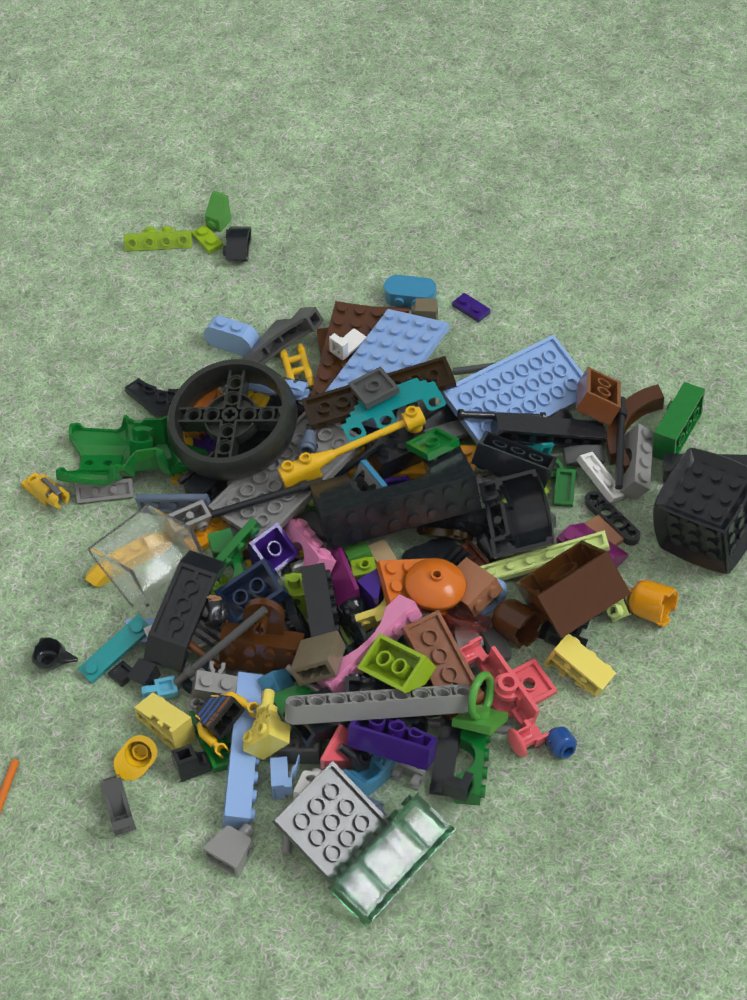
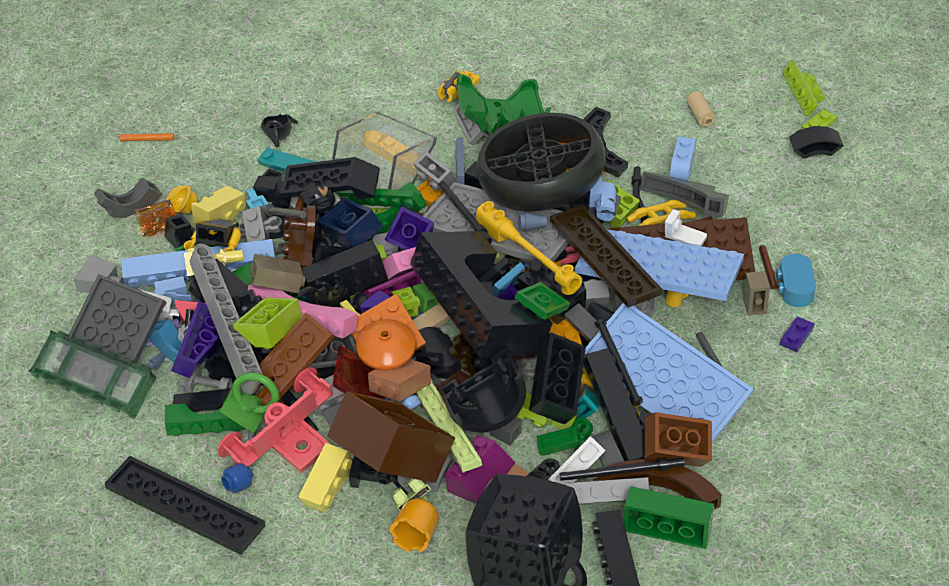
camera: 75 degrees right, 5 degrees down
(159, 312) = (701, 109): none -> tan brick
(159, 781) = (147, 217): none -> clear orange brick
(217, 212) = (850, 117): bright green slope -> none
(373, 387) = (599, 243): dark grey plate -> none
(409, 392) = (591, 260): teal piece -> none
(457, 787) = (165, 404): black panel -> none
(582, 794) = (185, 505): none -> black plate

